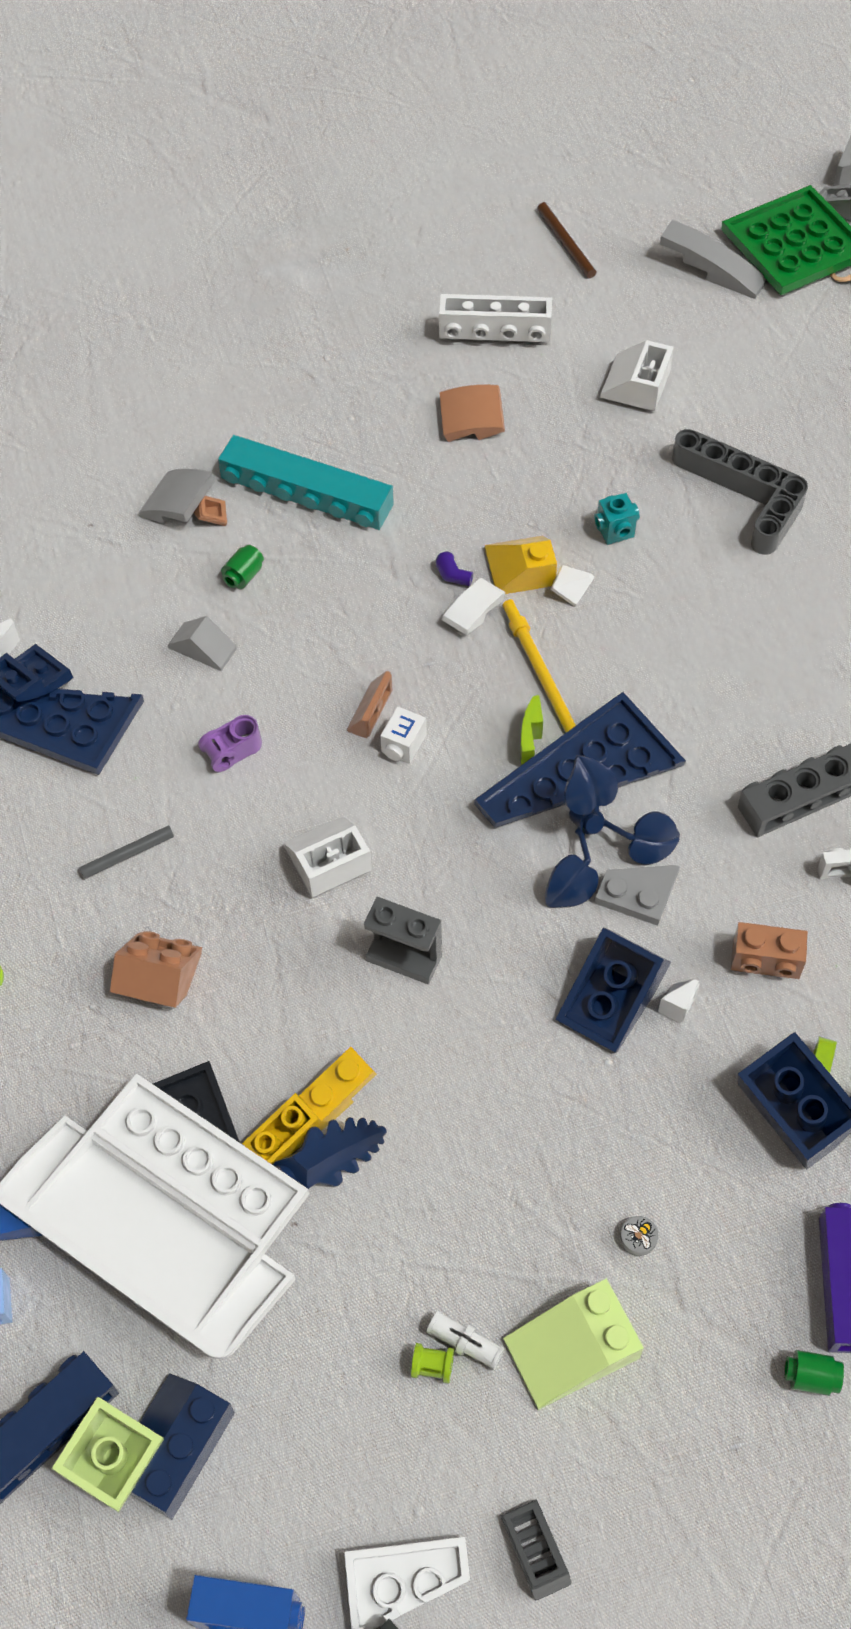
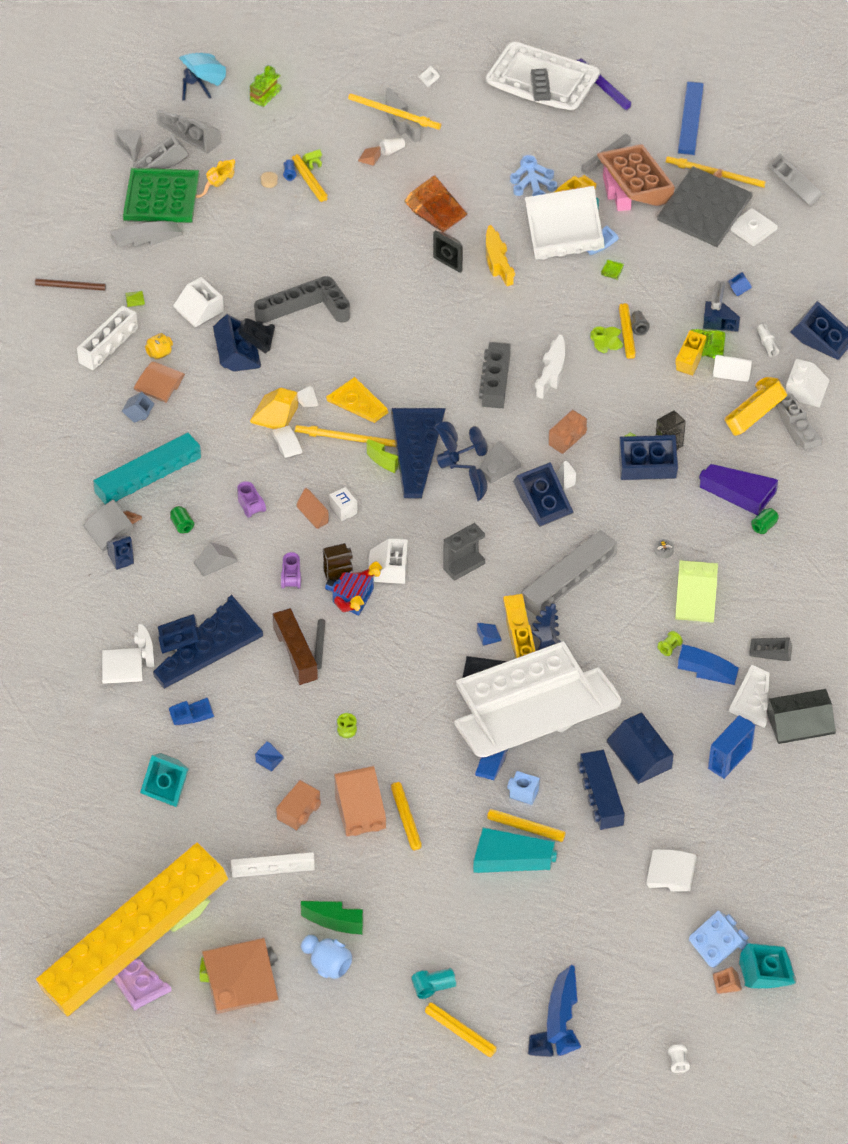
camera: 60 degrees left, 10 degrees down
(68, 843) = (301, 658): none -> reddish brown arch
(107, 1454) = (633, 767): yellowish green slope -> none
(135, 530) = (120, 551): none -> dark blue slope
(155, 968) = (400, 656): nougat slope -> none
(242, 838) = (354, 589): none -> torso
(273, 786) = (337, 561): none -> dark brown brick
(283, 1066) = (488, 633): none -> blue slope
(328, 624) = (250, 499): none -> medium lavender piece
(400, 413) = (138, 407): none -> sand blue brick
(421, 1458) = (707, 665): none -> blue slope
(450, 572) = (255, 440): dark purple arm -> none
(465, 1340) = (666, 627): white pin -> none
(479, 1115) = (569, 572): none -> light grey brick
(529, 377) = (158, 346): none -> yellow head
(597, 311) = (134, 298): none -> lime slope
(602, 455) = (233, 350): none -> dark blue slope
(616, 518) = (283, 359): teal brick -> none
(616, 646) = (358, 400): none -> yellow wing
(636, 464) = (257, 333): none -> black wing

